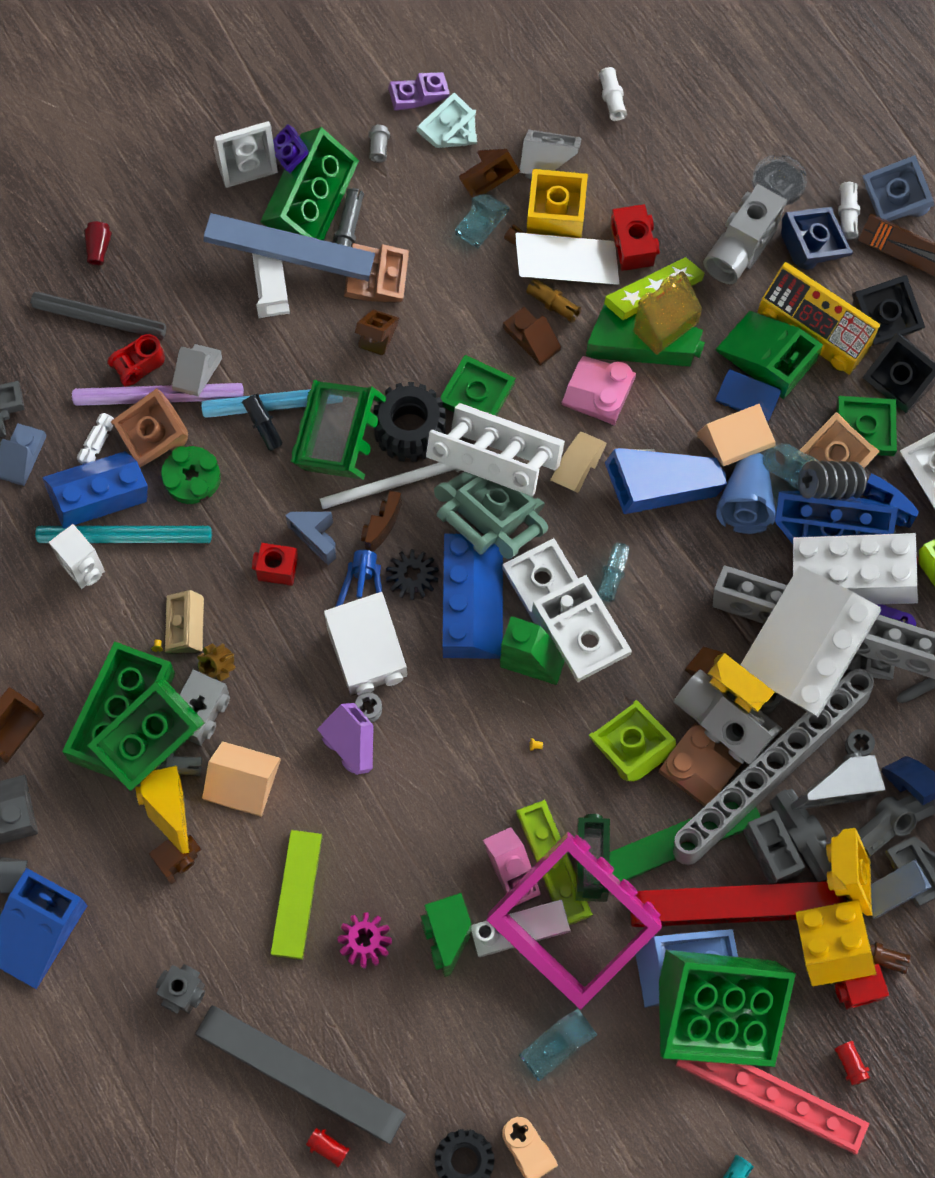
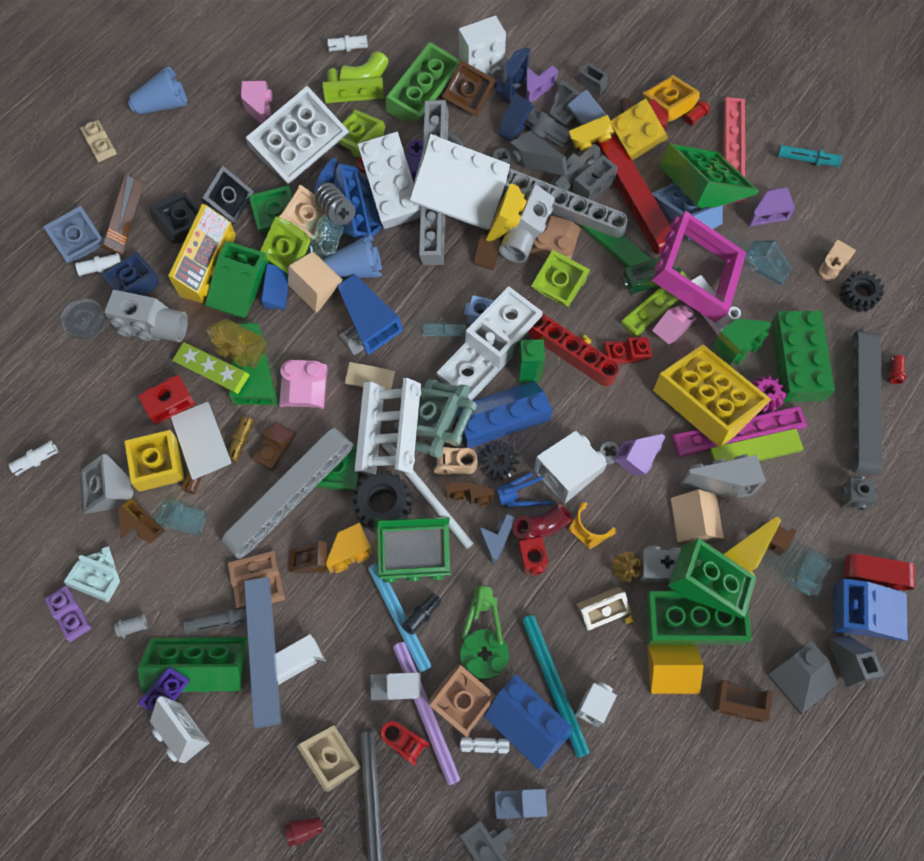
camera: 110 degrees left, 0 degrees up
(74, 967) = (880, 571): none -> red beam
(76, 667) = (674, 669): none -> light orange slope
(110, 873) = (810, 572): none -> clear light blue brick
(153, 282) = (329, 758): none -> tan slope
(250, 490) = (482, 601): none -> bright green plant
(265, 825) = (726, 478): none -> light grey slope
(286, 630) = (588, 539): none -> light orange helmet
(308, 586) = (542, 525): none -> dark red cylinder
(330, 887) = (761, 425): none -> dark pink tile
(371, 367) = (348, 547): none -> light orange slope
(389, 860) = (710, 395): none -> yellow slope
(397, 1014) = (802, 356): none -> green brick
(427, 521) = (453, 461): none -> light nougat piece
(462, 327) = (286, 493): none -> light grey beam
(498, 789) = (629, 351): none -> red slope
(516, 725) = (576, 357): none -> red beam
(630, 612) = (477, 303): none -> light blue brick
(647, 1095) = (774, 207): none -> medium lavender slope
(798, 414) = (285, 243): none -> lime slope
(889, 1031) = (673, 96): none -> light orange slope

